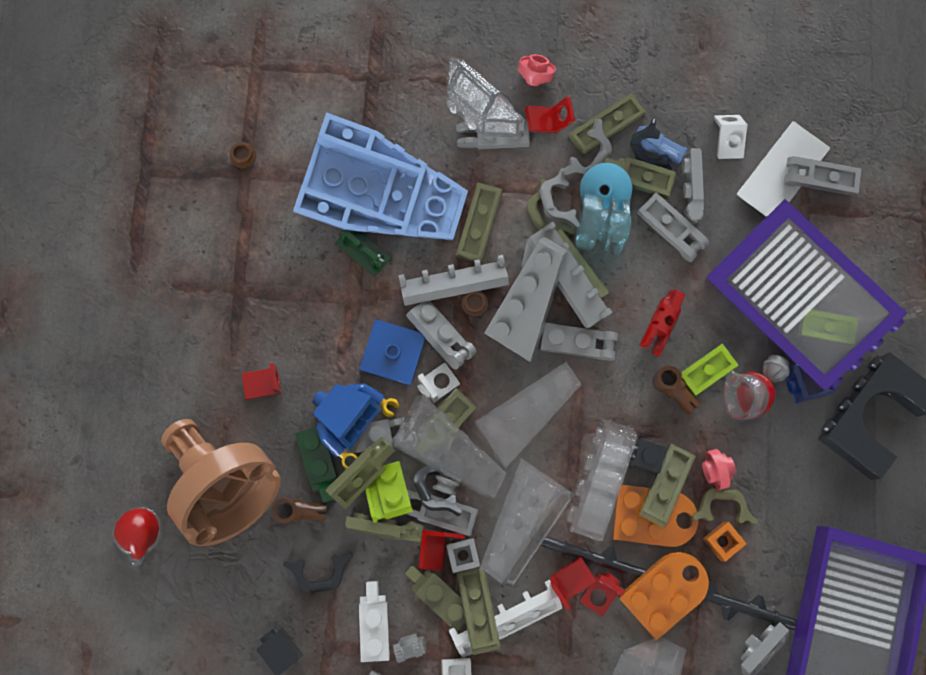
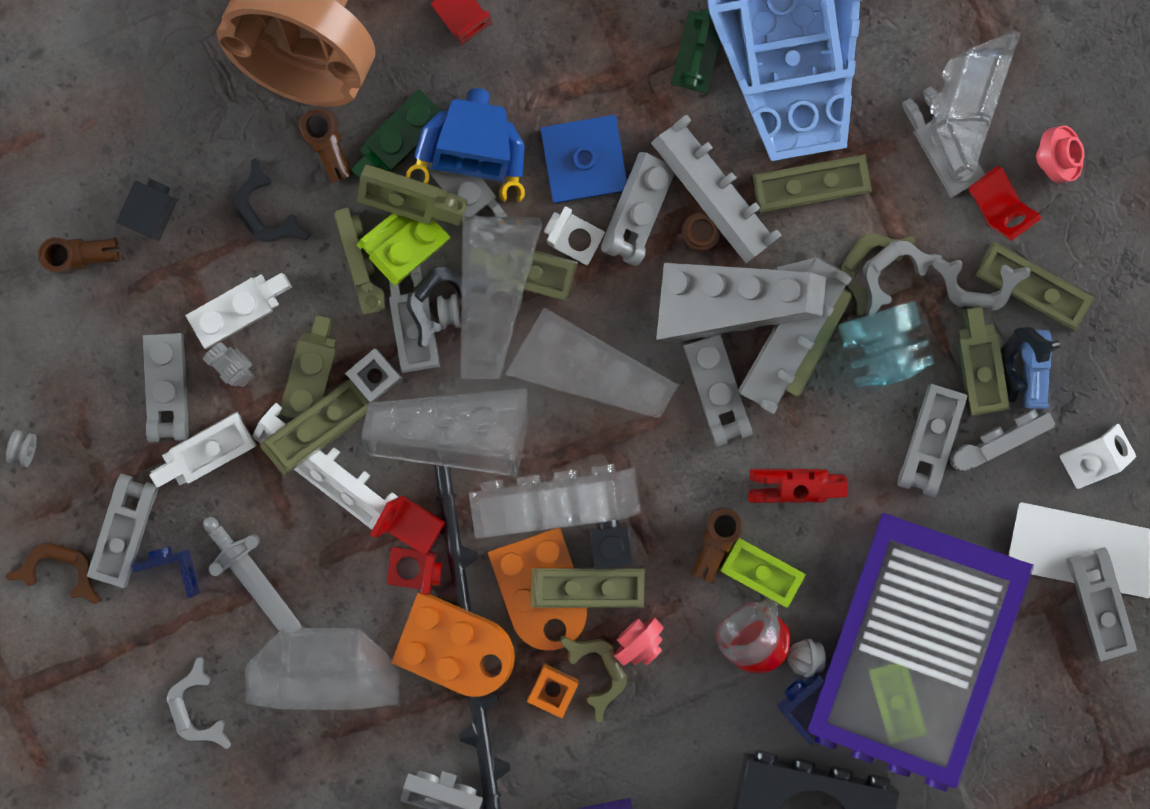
camera: 65 degrees right, 10 degrees up
(433, 549) = (364, 335): red bracket -> none
(610, 175) = (958, 326): medium azure dish -> none

